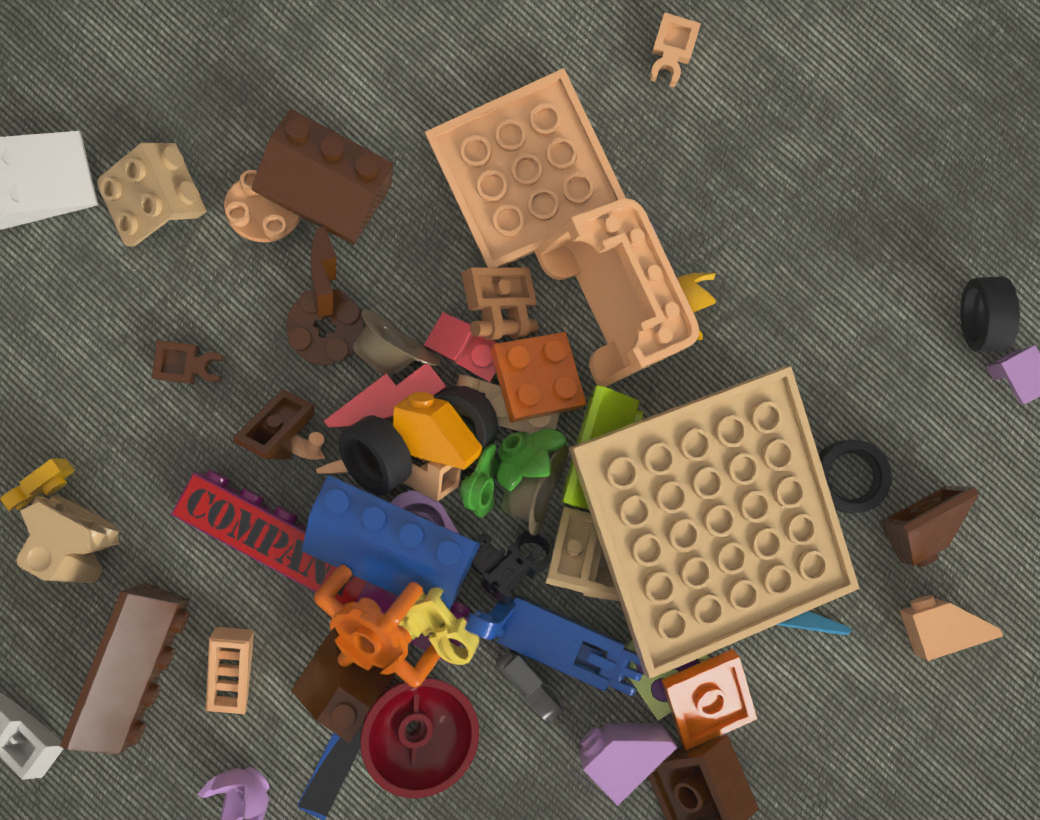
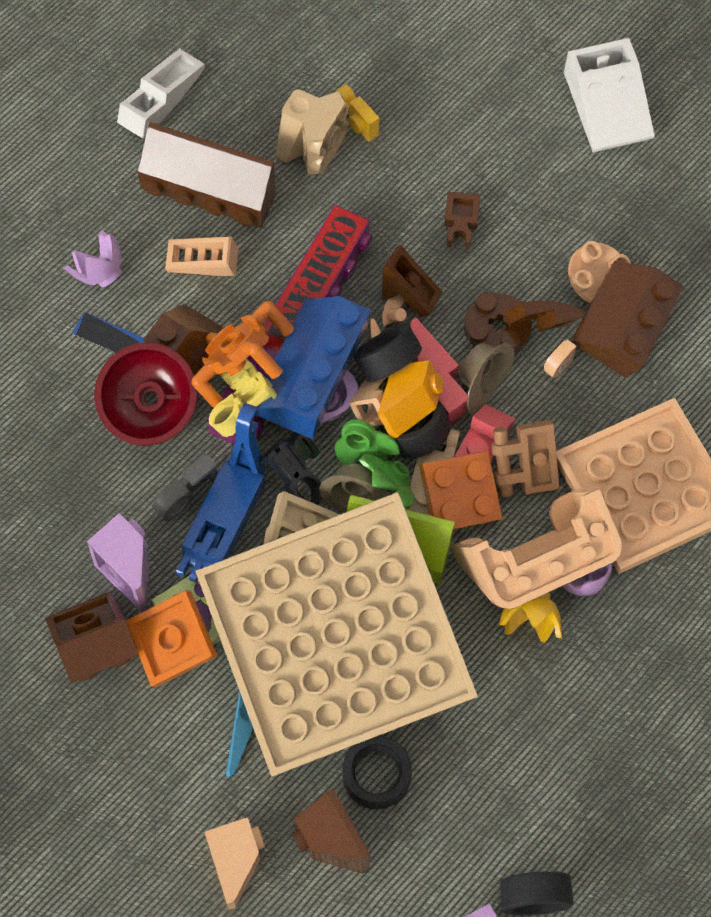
camera: 90 degrees right, 20 degrees down
(149, 190) = (608, 189): tan bracket -> none
(373, 258) = (560, 358): none -> light nougat tile

